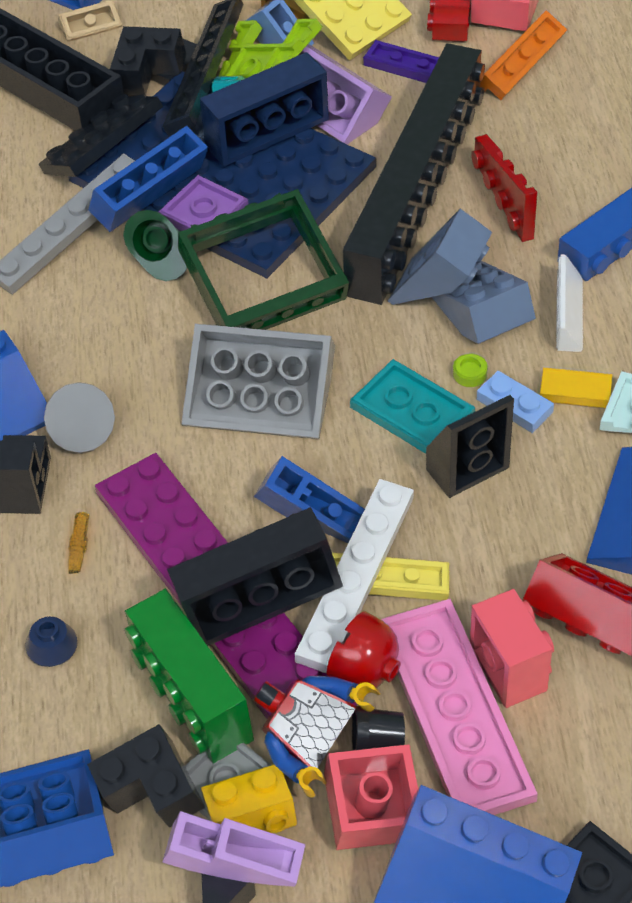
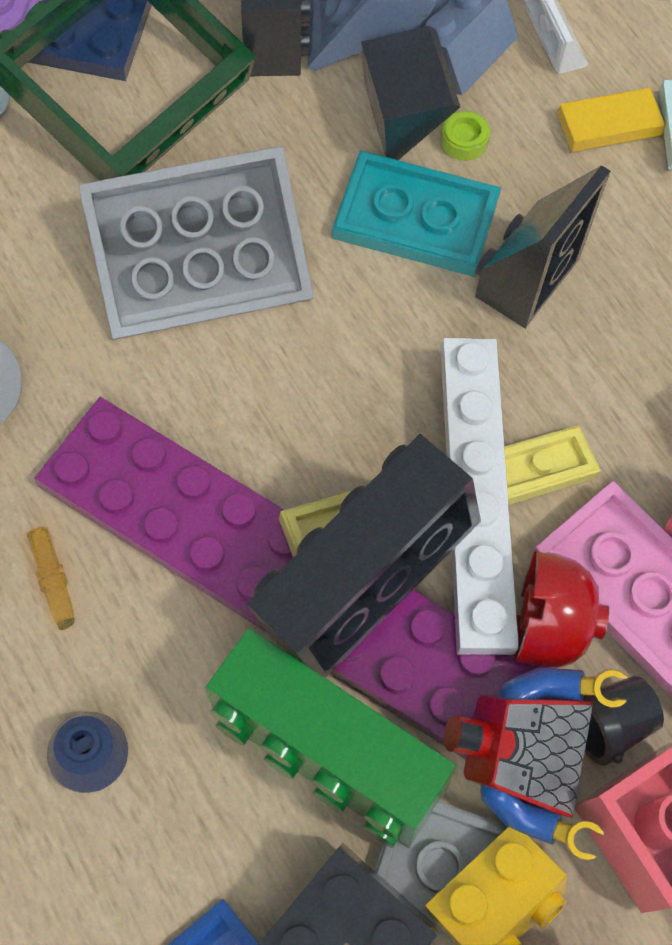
camera: 30 degrees left, 15 degrees up
(293, 489) = (356, 400): blue slope -> none
(433, 325) = (407, 87): none -> black slope
(529, 407) = (540, 160): light blue plate -> none

